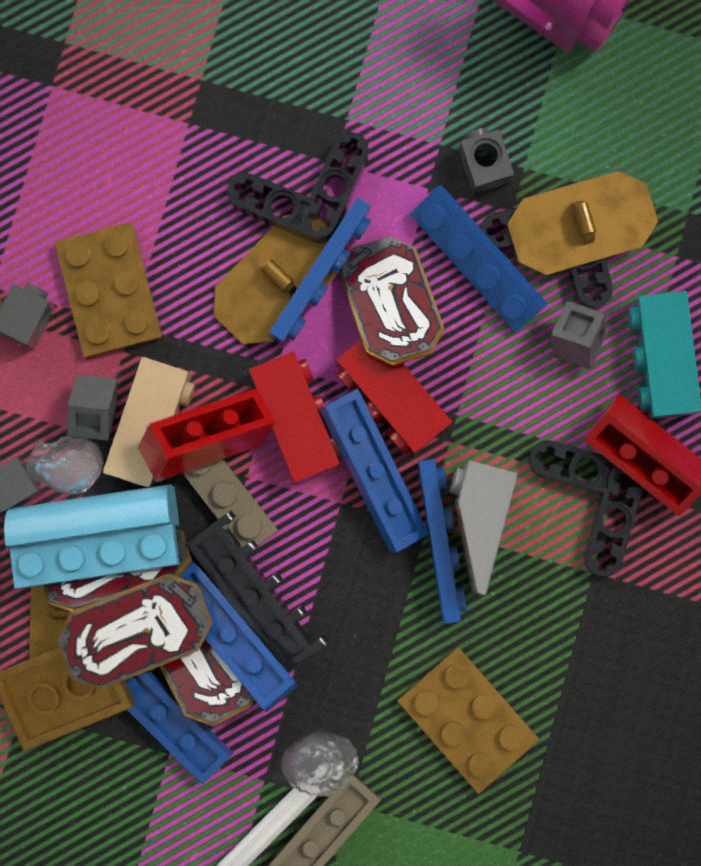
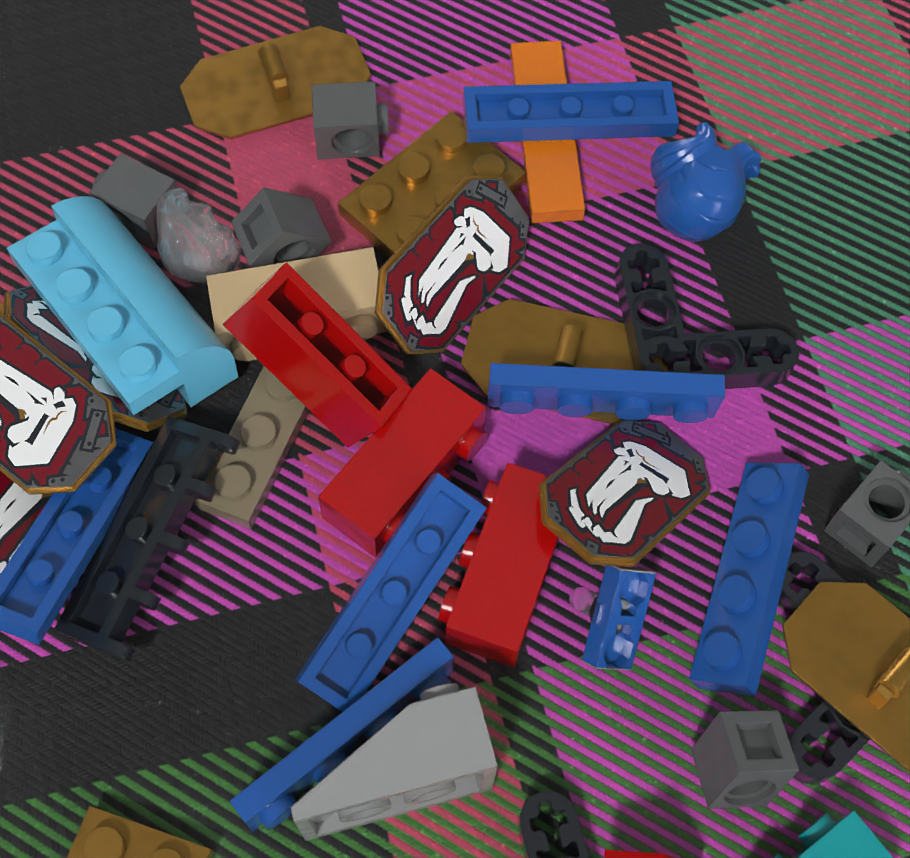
camera: 60 degrees right, 20 degrees down
(102, 186) = (549, 165): none -> orange tile
(108, 167) = (569, 111): none -> blue plate
(179, 311) = (451, 264): none -> shield
(215, 120) = (701, 184): none -> blue hair
(460, 352) = (615, 615): none -> blue piece

